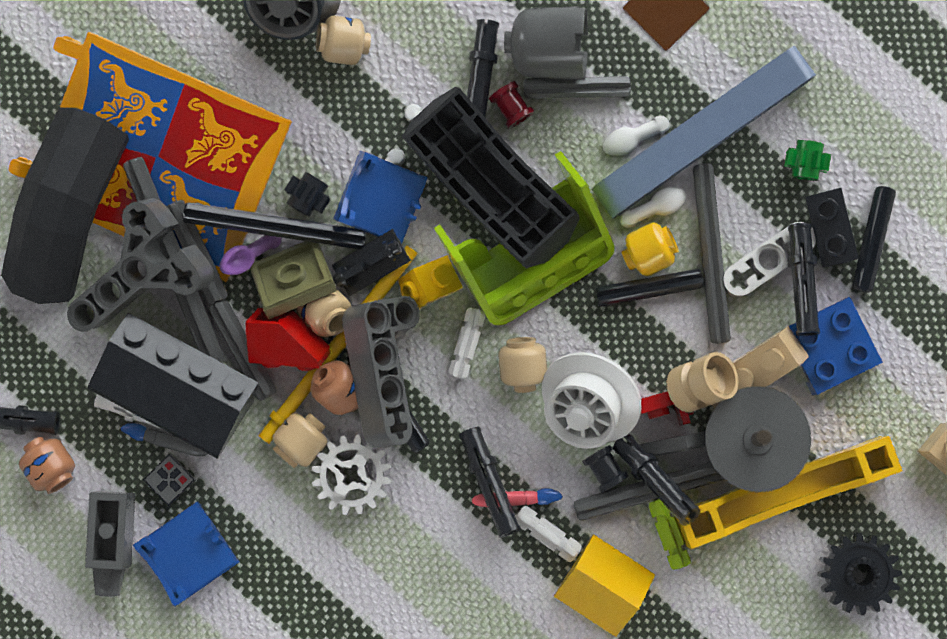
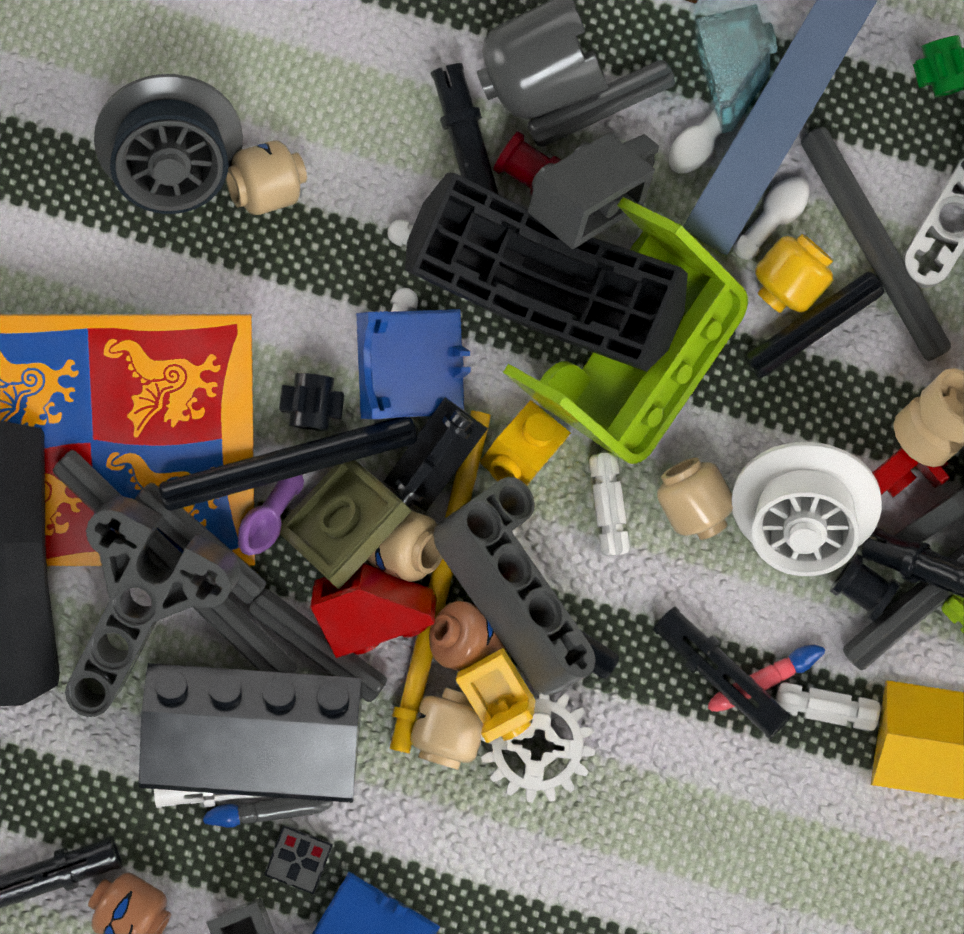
camera: 30 degrees left, 0 degrees up
(338, 432) = (498, 696): none -> yellow bracket
(536, 135) = (583, 190): none -> dark grey hinge
(673, 96) = (734, 59): none -> clear light blue slope

